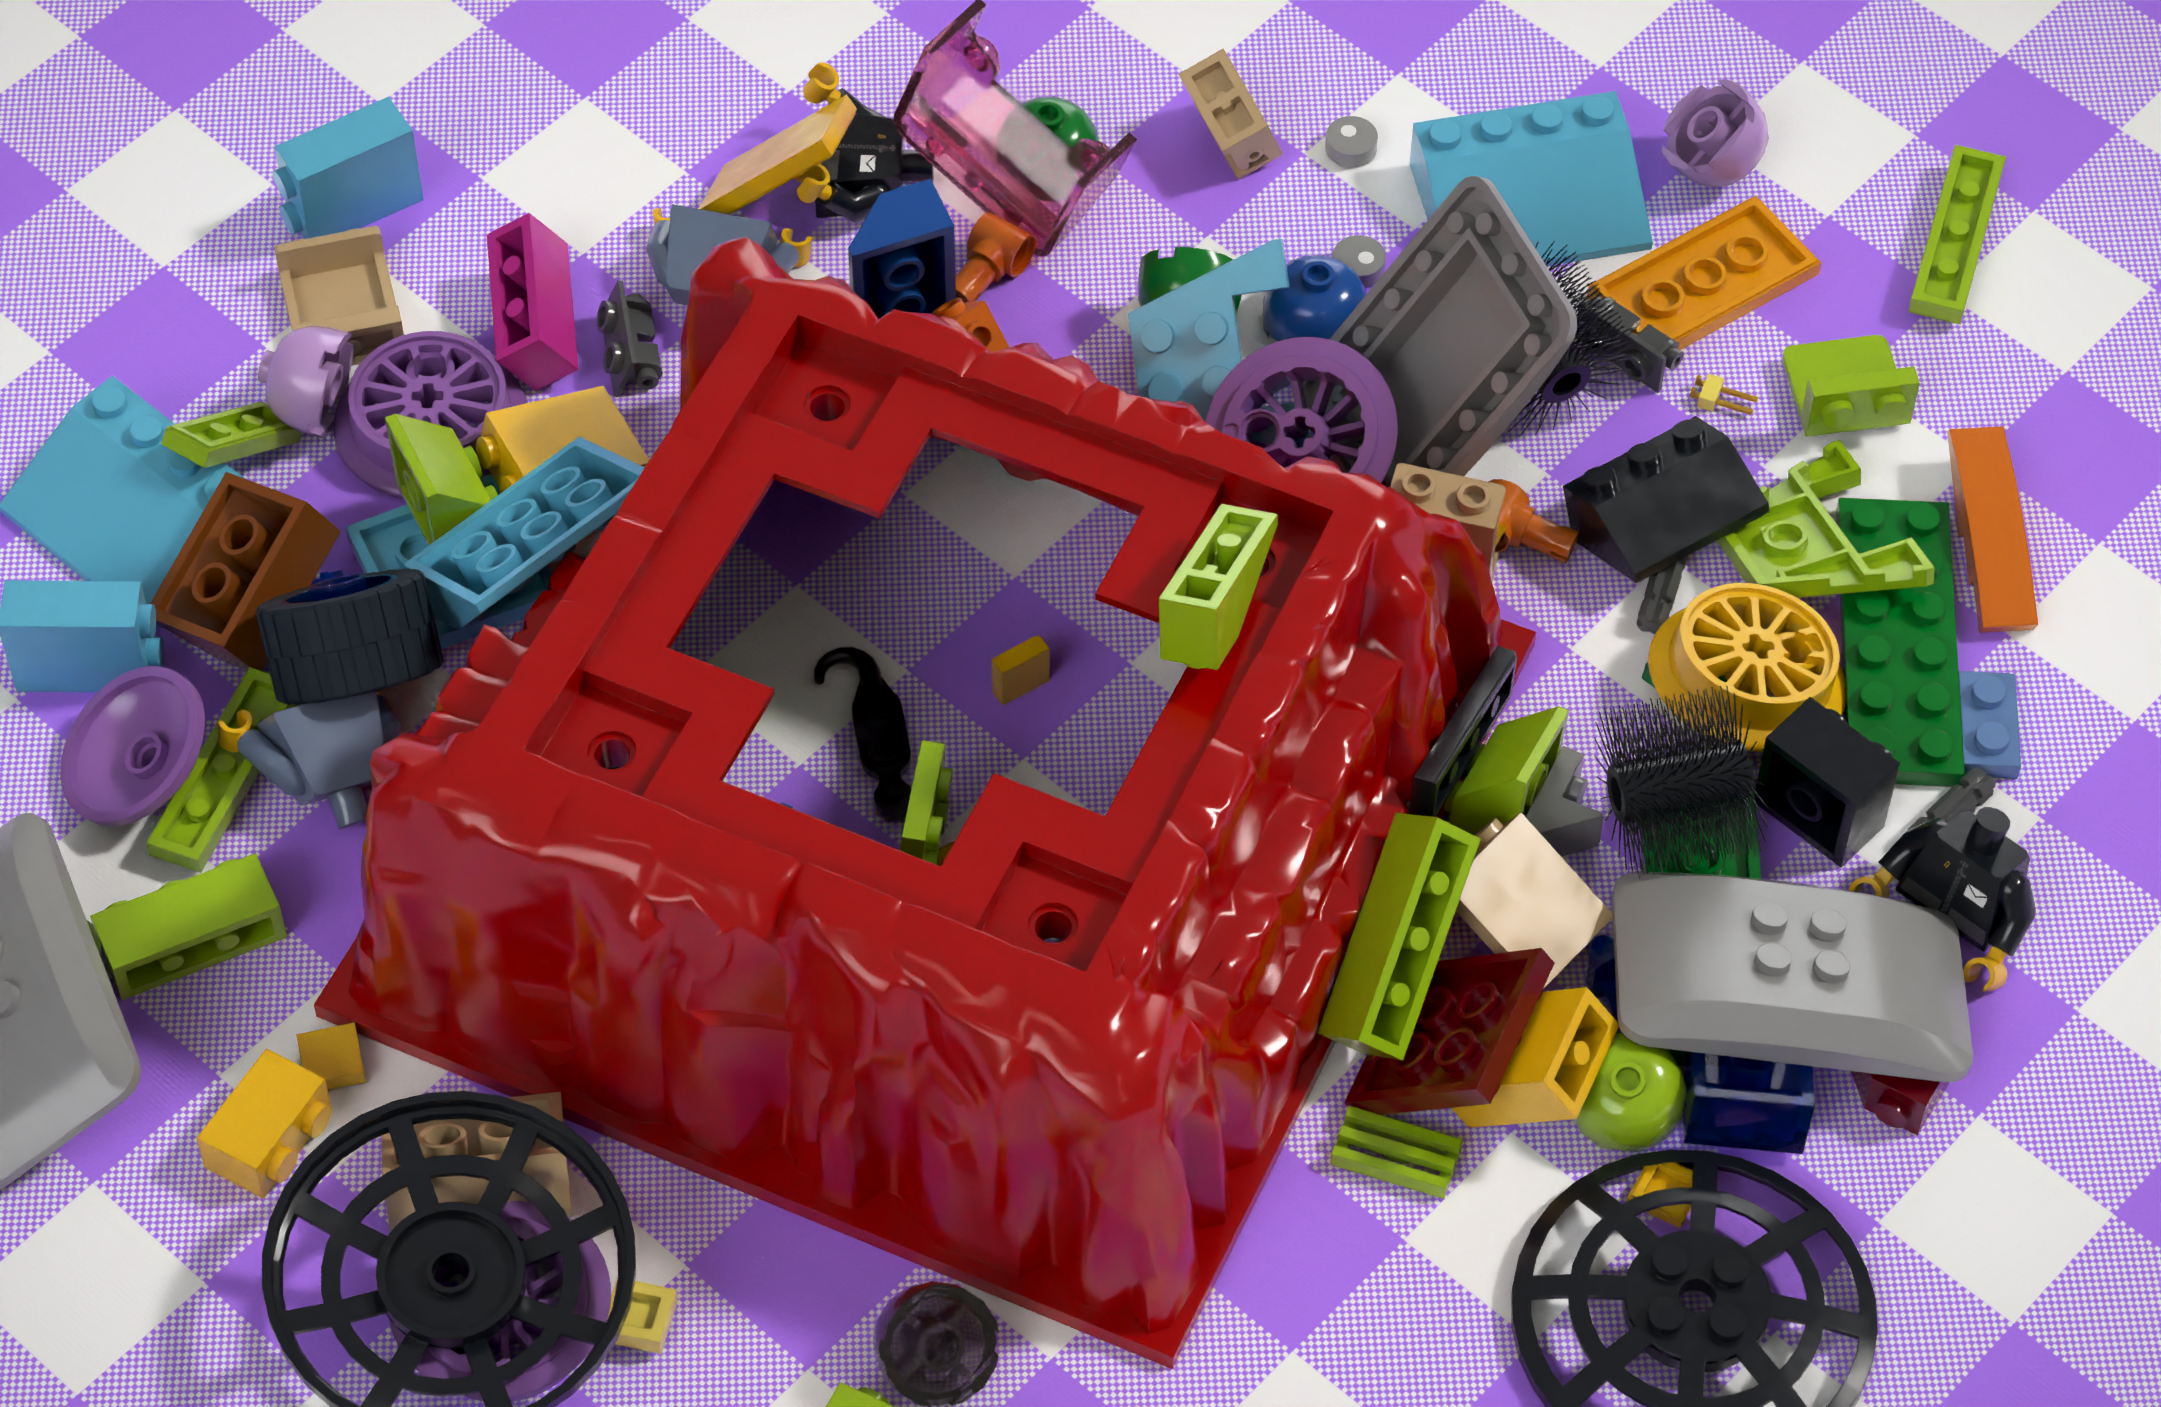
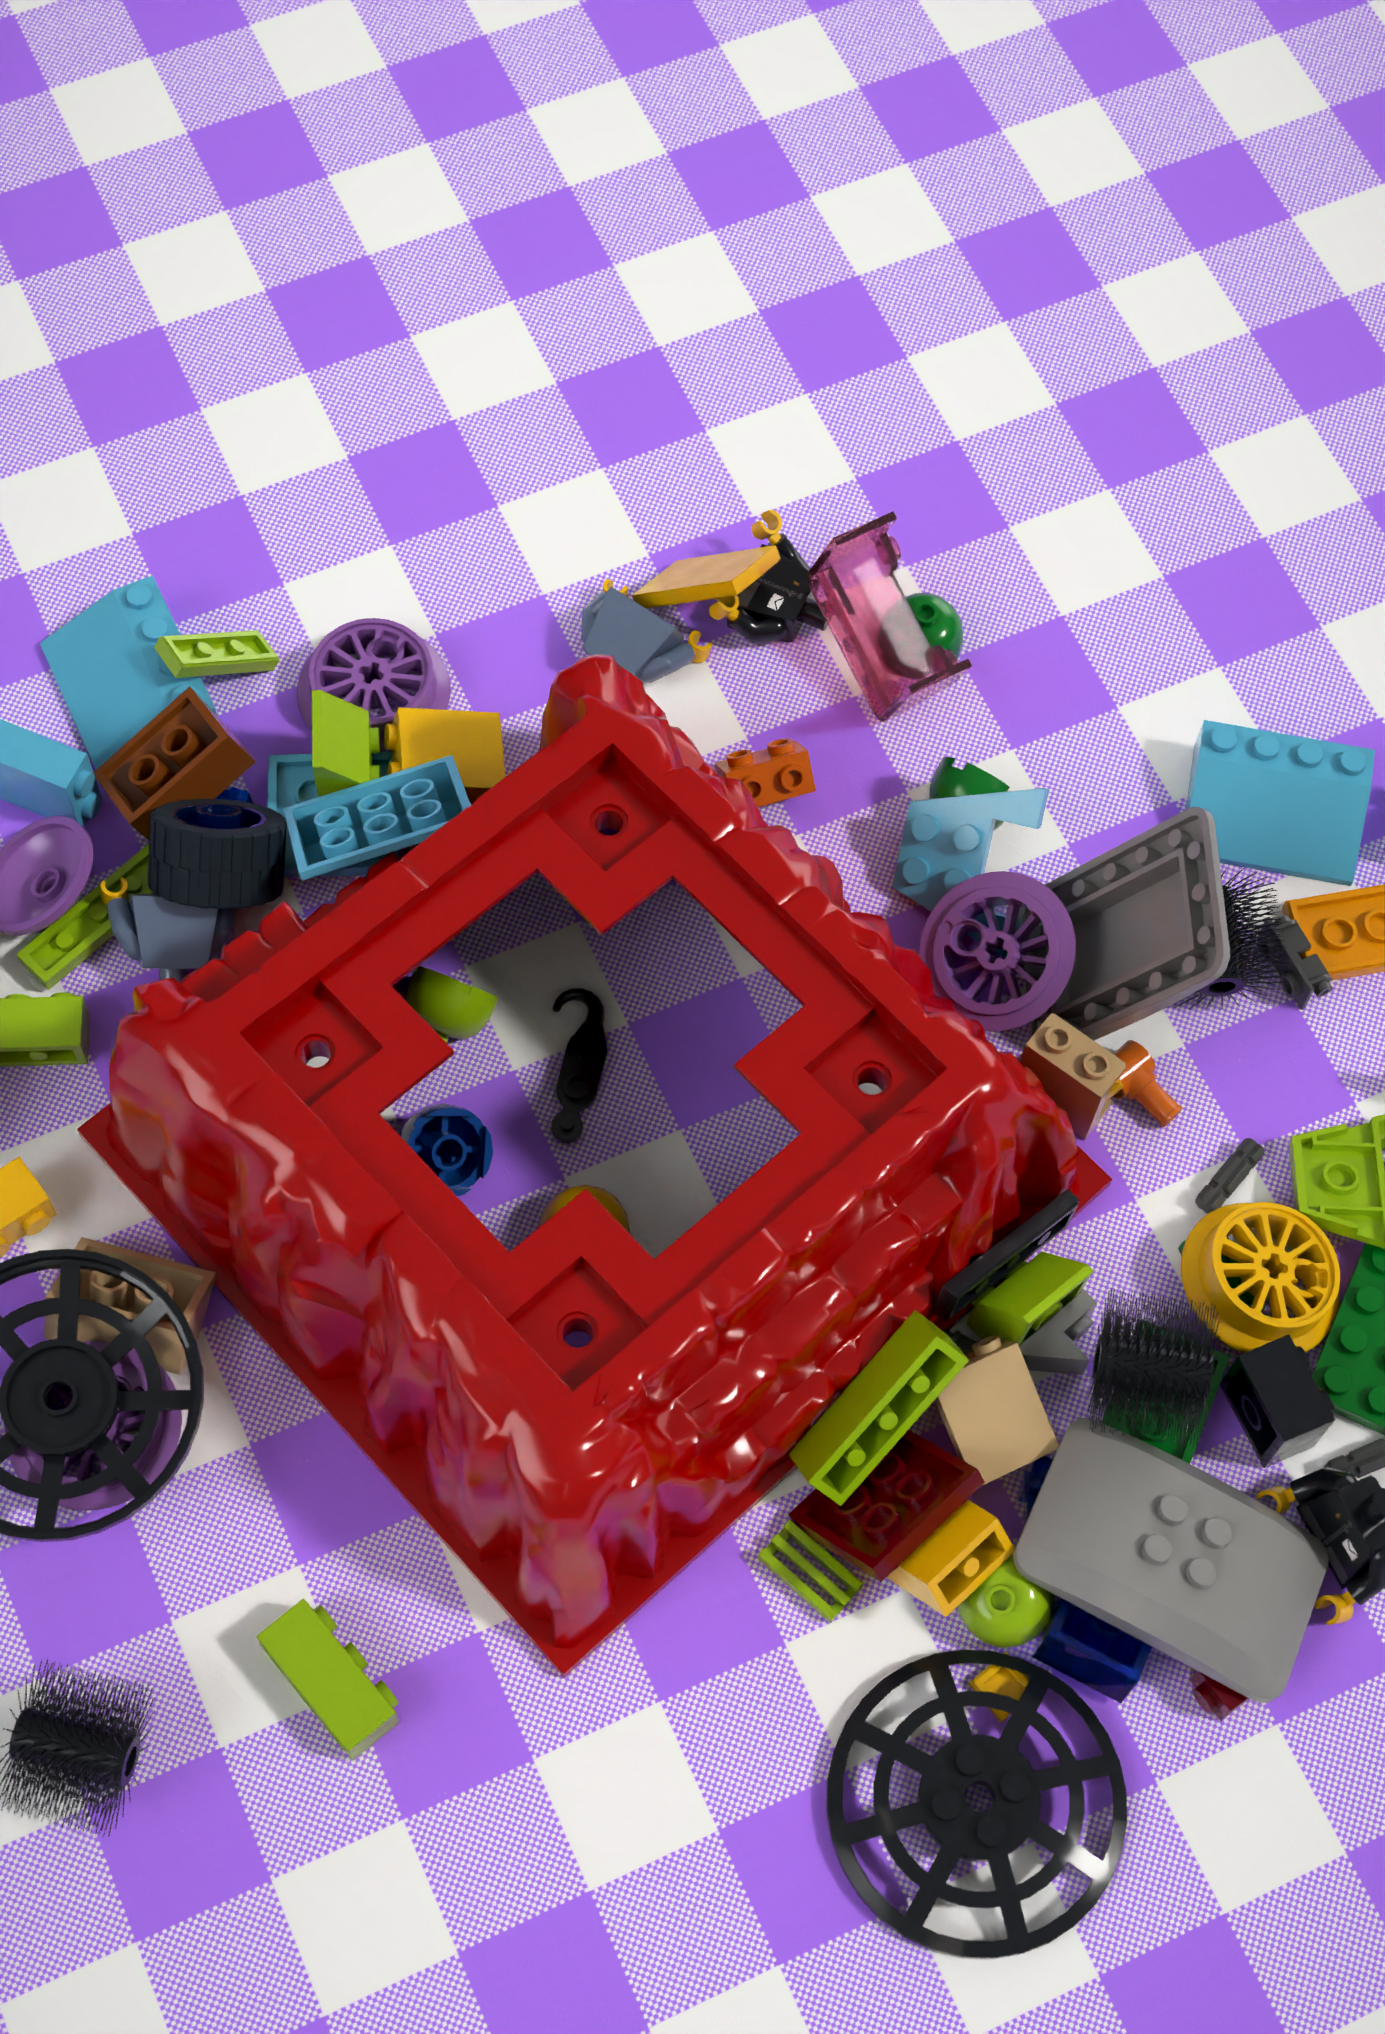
camera: 20 degrees right, 10 degrees up
(307, 377) = (290, 626): lavender cylinder -> none
(333, 1055) = (71, 1175): yellow tile -> none
(341, 285) = (348, 569): tan panel -> none
(348, 172) = (392, 473): medium azure brick -> none
(532, 302) = (481, 624): dark pink brick -> none
(624, 324) = (544, 663): dark grey hinge -> none
(648, 1317) = (197, 1477): light yellow plate -> none
(905, 252) = (753, 699): blue slope -> none
(927, 804) = (546, 1189): lime wing -> none
(936, 1343) = (387, 1595): clear smoke cylinder -> none
(993, 250) = (843, 705): orange pin -> none
(1020, 669) = (705, 1059): yellow tile -> none
(1214, 587) = (818, 1103): lime slope -> none
(1230, 114) = (1069, 658): tan hinge -> none
(1318, 299) = (1067, 839): blue cylinder -> none
(1351, 141) = (1156, 711): light grey tile -> none
(1364, 256) = (1117, 814): light grey tile -> none
(1663, 499) = (1259, 1110): black slope -> none
(1711, 391) = (1342, 1026): piece -> none

